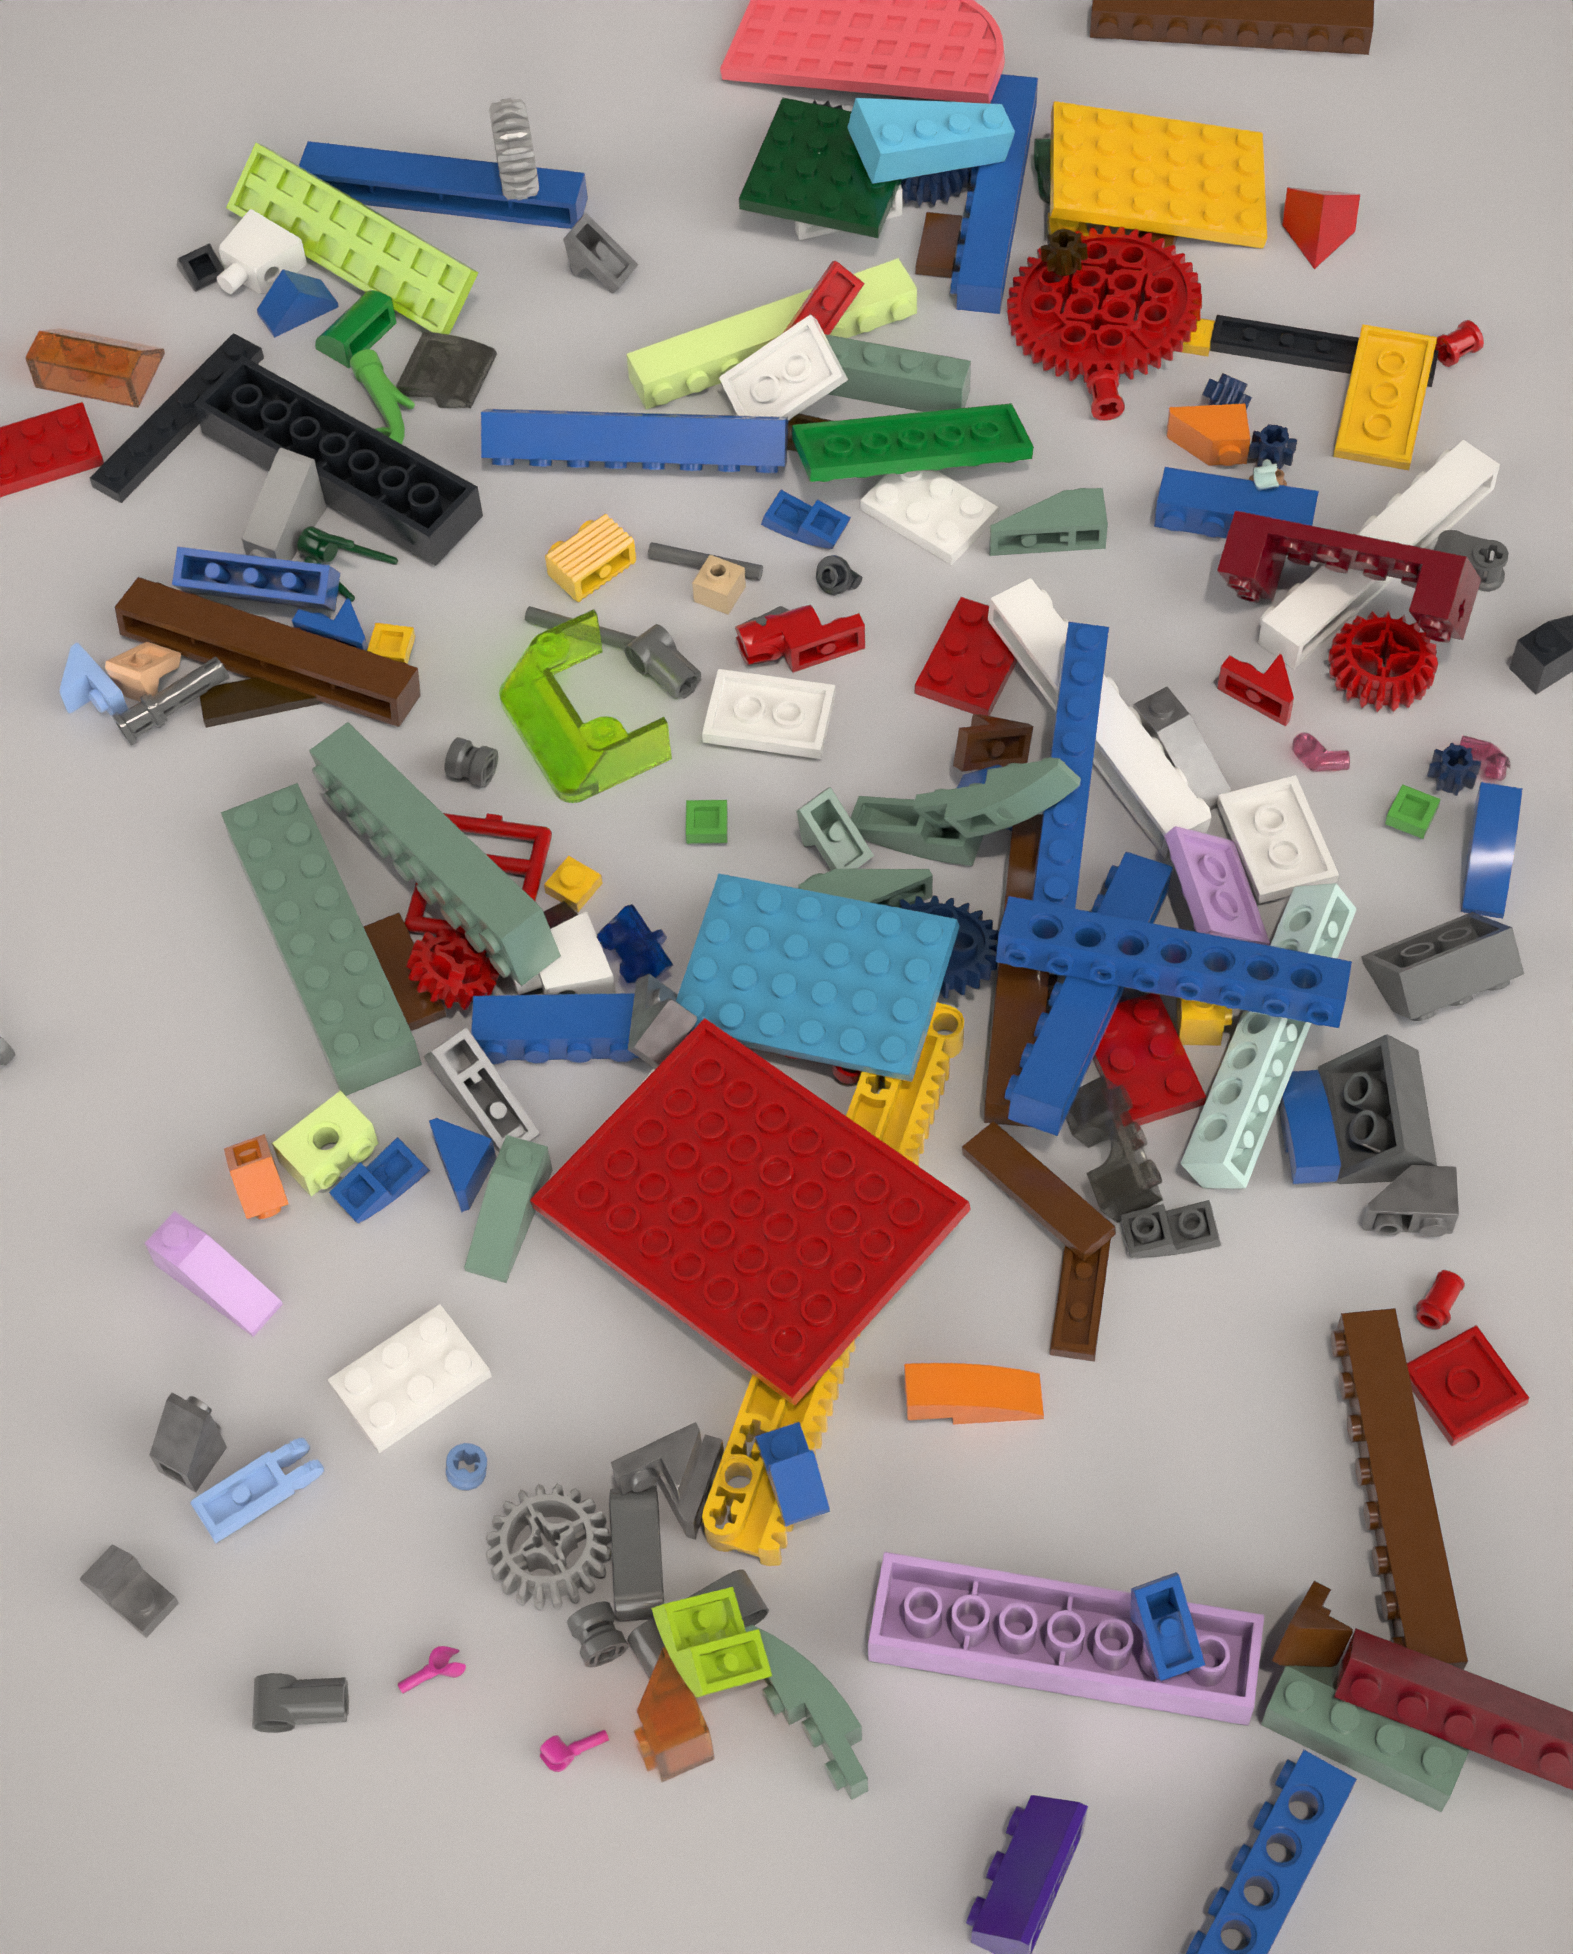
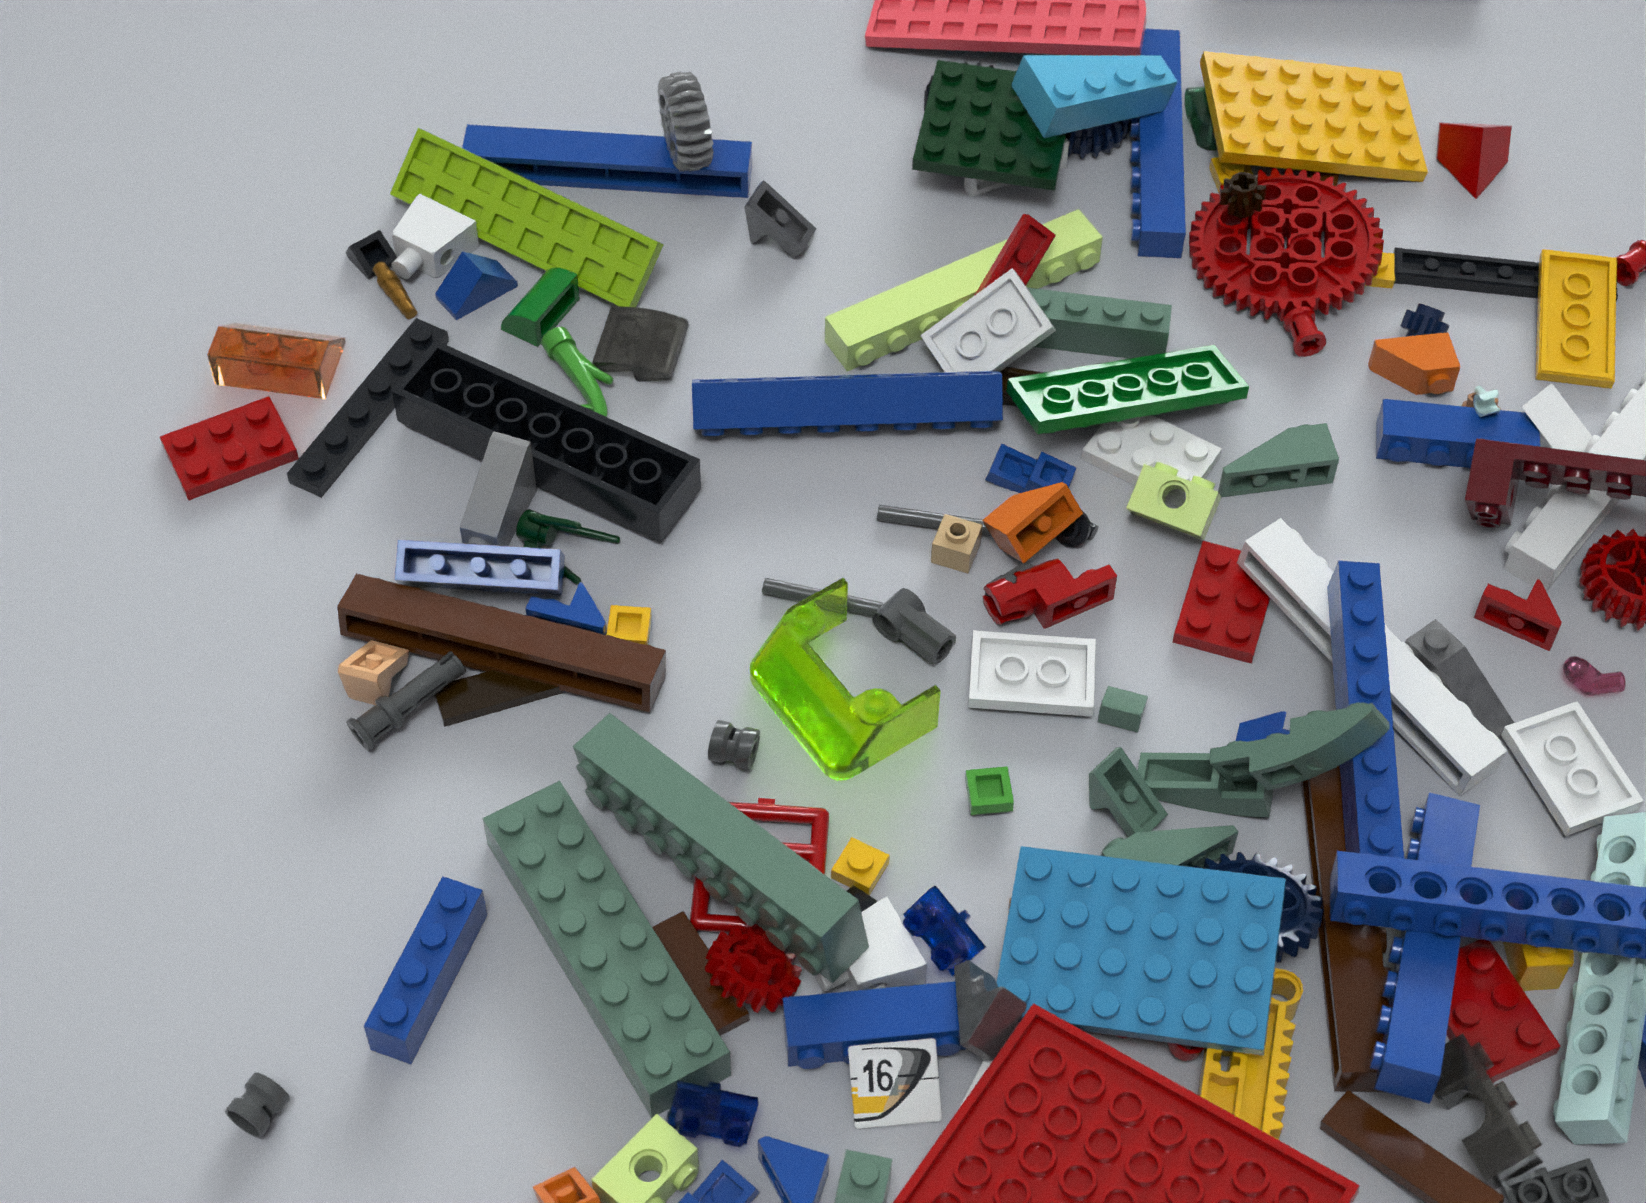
camera: 10 degrees left, 5 degrees down
(87, 682) = (315, 686): light blue slope -> none
(153, 947) = (426, 970): none -> blue brick
(216, 301) = (393, 288): none -> pearl gold animal
(393, 1094) = (712, 1112): none -> clear blue hips
(479, 1089) = (802, 1099): flat silver slope -> none
(568, 1082) = (895, 1083): none -> sticker
(590, 557) = (820, 523): yellow brick -> none
(792, 565) = (1032, 519): none -> orange slope
(851, 753) = (1122, 708): none -> sand green slope
(915, 551) = (1192, 517): none -> yellowish green brick
(938, 244) = (1109, 194): reddish brown tile -> none
(992, 743) = (1268, 688): reddish brown slope -> none
(1215, 886) = (1525, 822): lavender plate -> none
(1274, 445) = (1479, 371): dark blue gear -> none
(1337, 499) = (1557, 421): none -> white sticker

